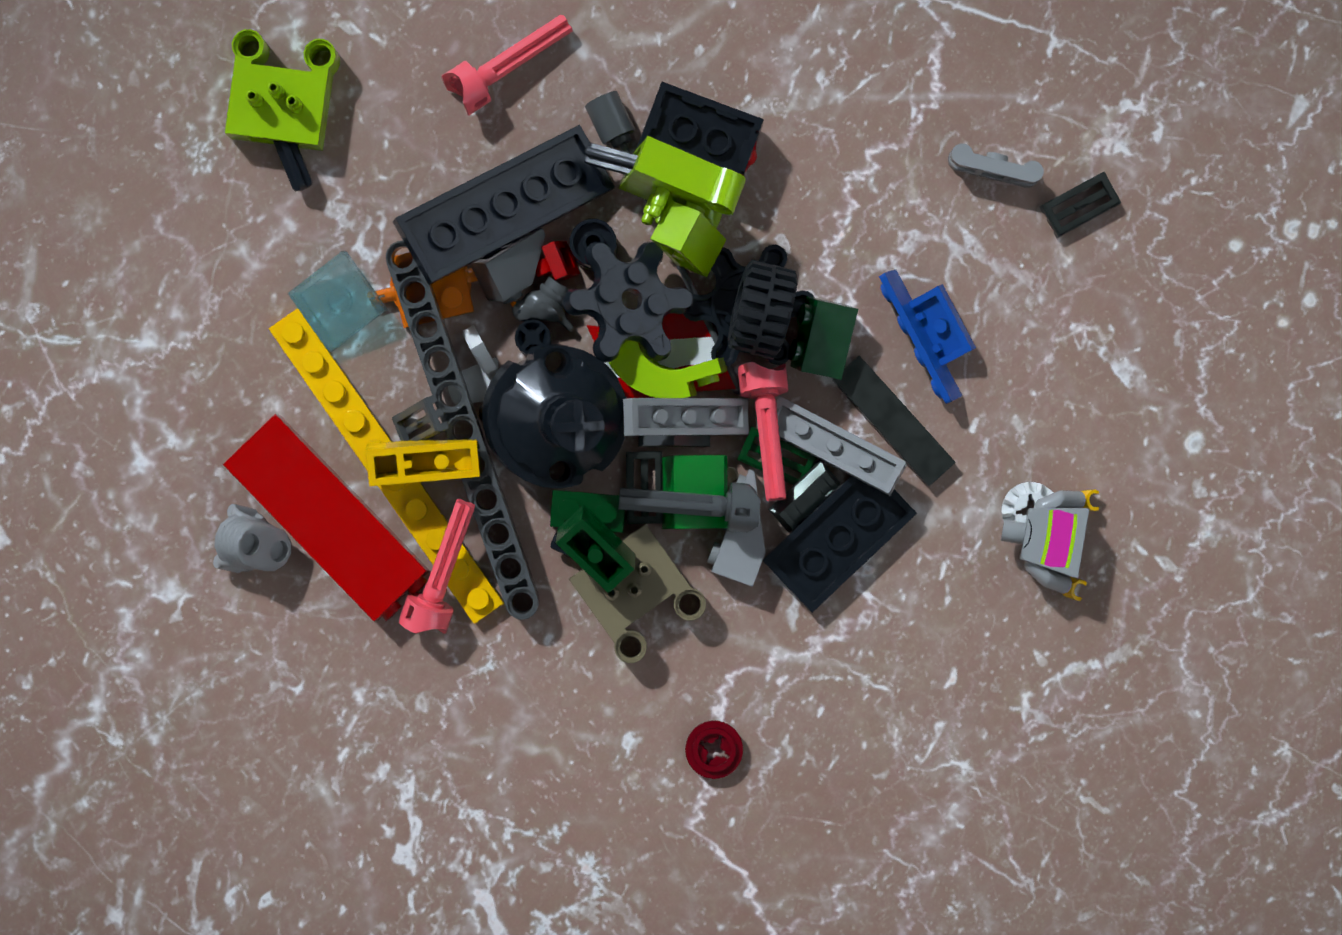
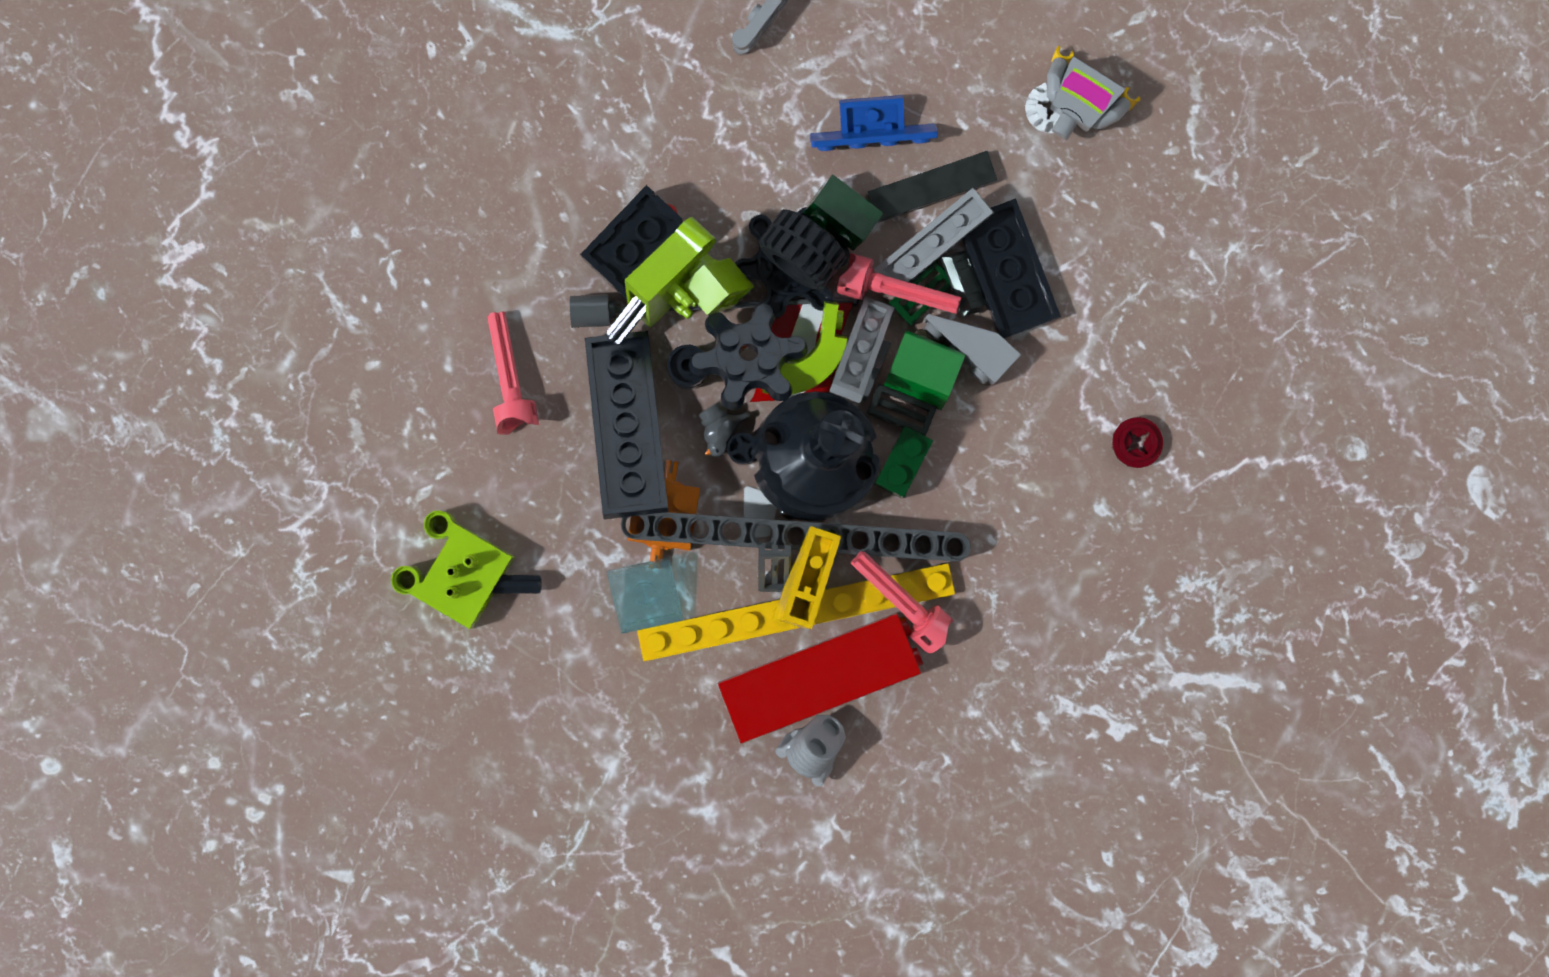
camera: 70 degrees left, 0 degrees up
(479, 350) = (733, 496): white tile -> none
(510, 268) = (680, 442): dark grey slope -> none
(558, 261) = (689, 401): red tile -> none
(596, 548) = (940, 466): dark green brick -> none
(642, 590) = (974, 455): dark tan piece -> none
(739, 506) = (954, 337): dark grey piece -> none

